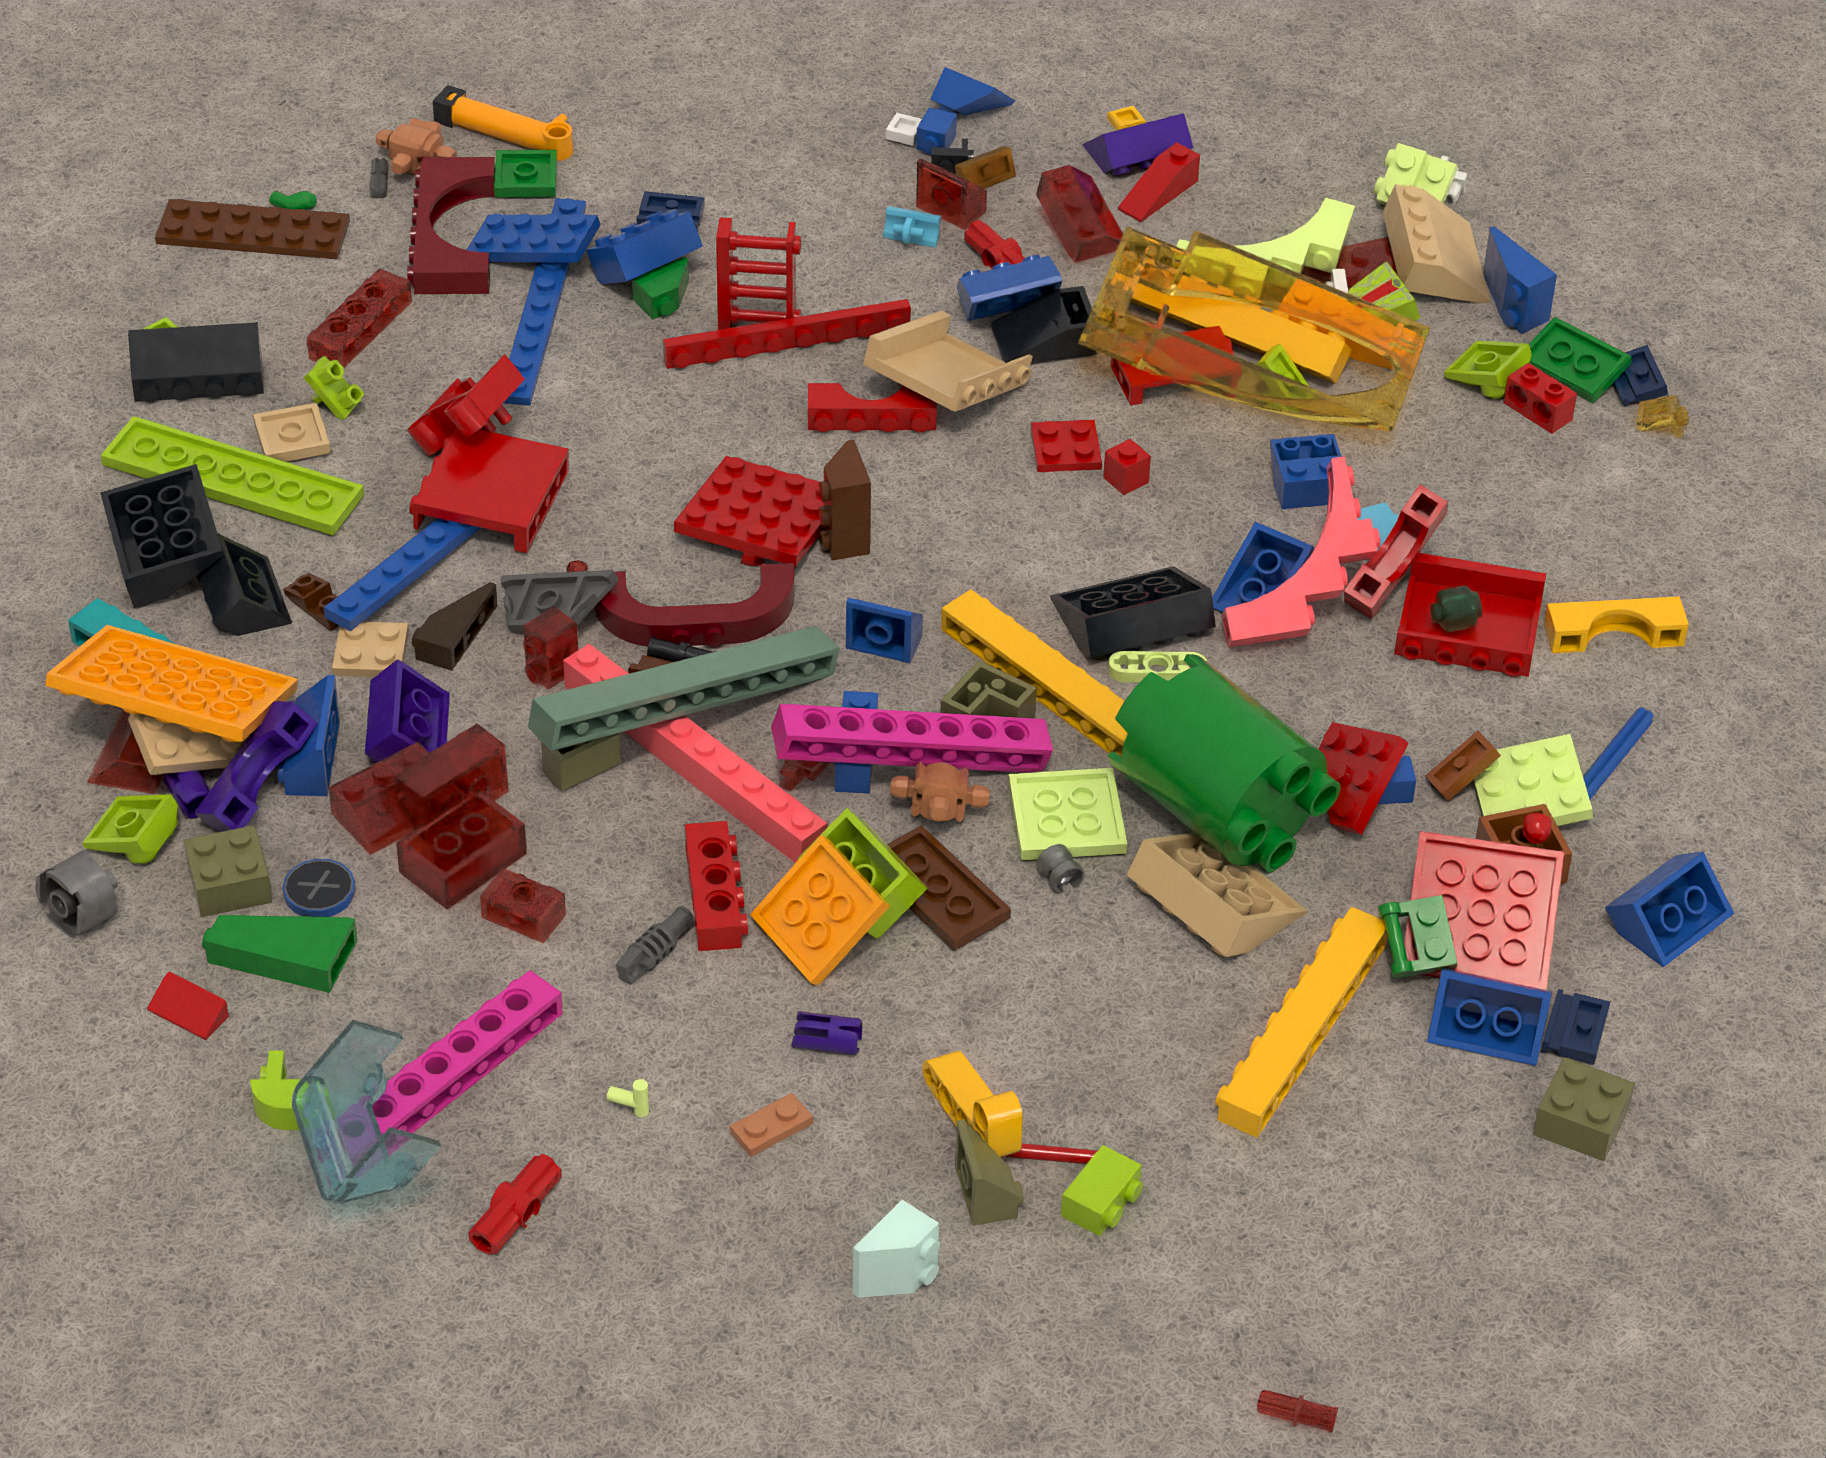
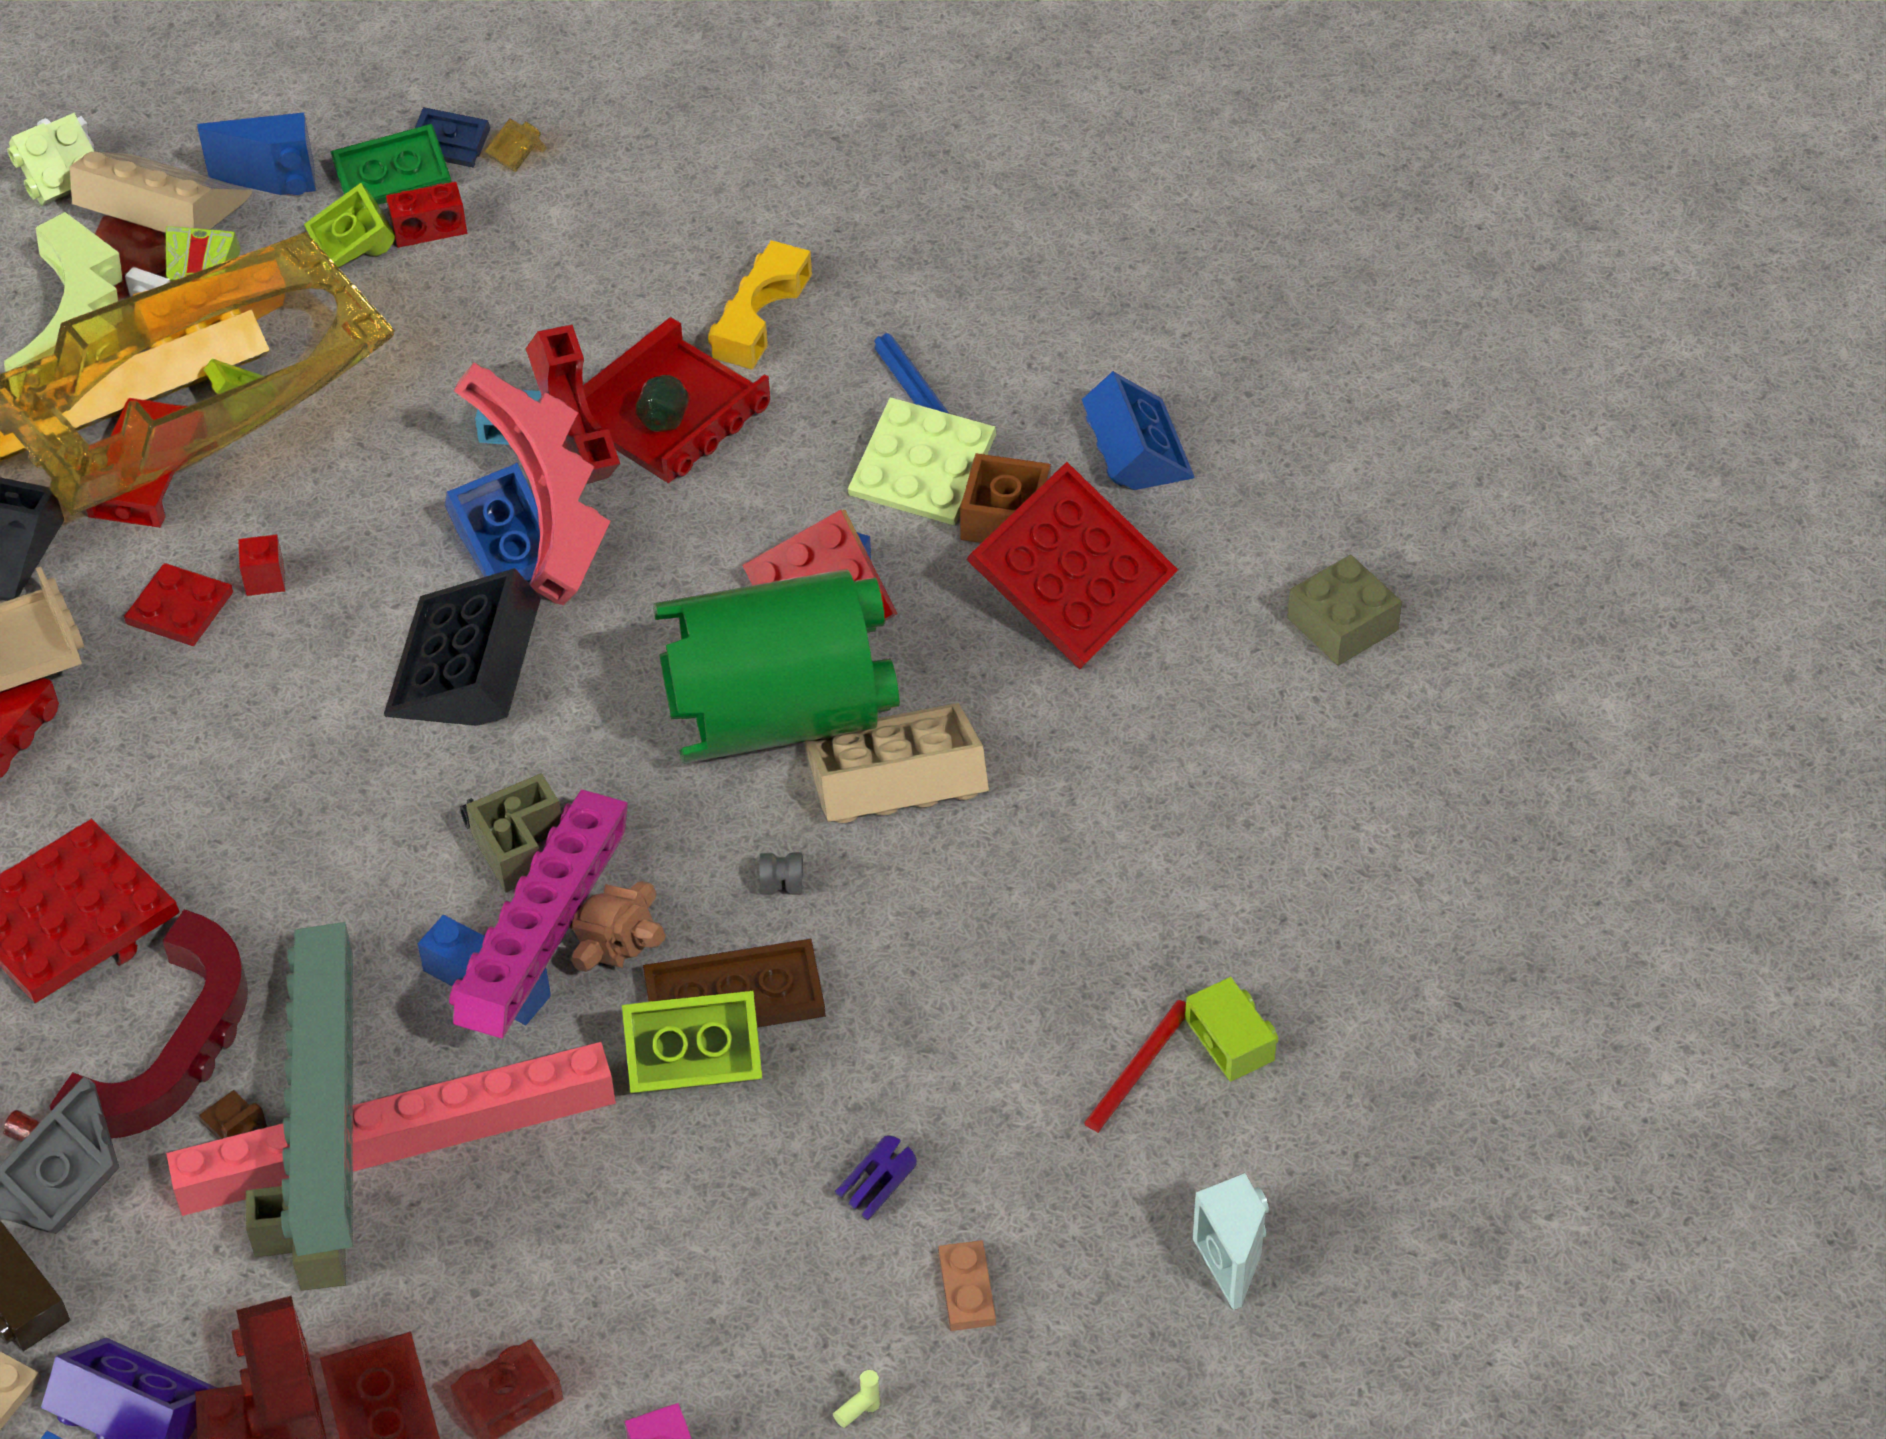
camera: 60 degrees left, 5 degrees up
(546, 644) = (140, 1195): clear red brick -> none
(653, 945) = (646, 1287): dark grey hinge -> none
(673, 651) = (226, 1077): black pin -> none
(713, 886) = (615, 1210): red brick -> none
(798, 769) = (468, 1040): clear red plate -> none
(819, 910) = (719, 1103): light orange plate -> none
(846, 505) = (150, 815): reddish brown slope -> none
(882, 630) = (338, 873): blue slope -> none
(968, 1098) = (1066, 1087): yellow beam -> none
(984, 1179) = (1164, 1122): olive slope -> none
(1020, 653) = (478, 768): yellow brick -> none
(1069, 810) = (706, 835): yellowish green plate -> none
(1147, 658) = (554, 657): yellowish green beam -> none
(1297, 1410) = (1580, 994): clear red axle -> none
(1301, 469) = (386, 426): blue slope -> none
(1302, 1022) = (1110, 769): yellow brick -> none
(1429, 933) = (1076, 617): plate -> none
(1463, 765) = (869, 493): dark orange plate -> none
(1489, 1016) = (1187, 624): blue slope -> none
(1536, 827) = (1014, 470): red hinge -> none
(1576, 1026) = (1235, 570): dark blue plate -> none

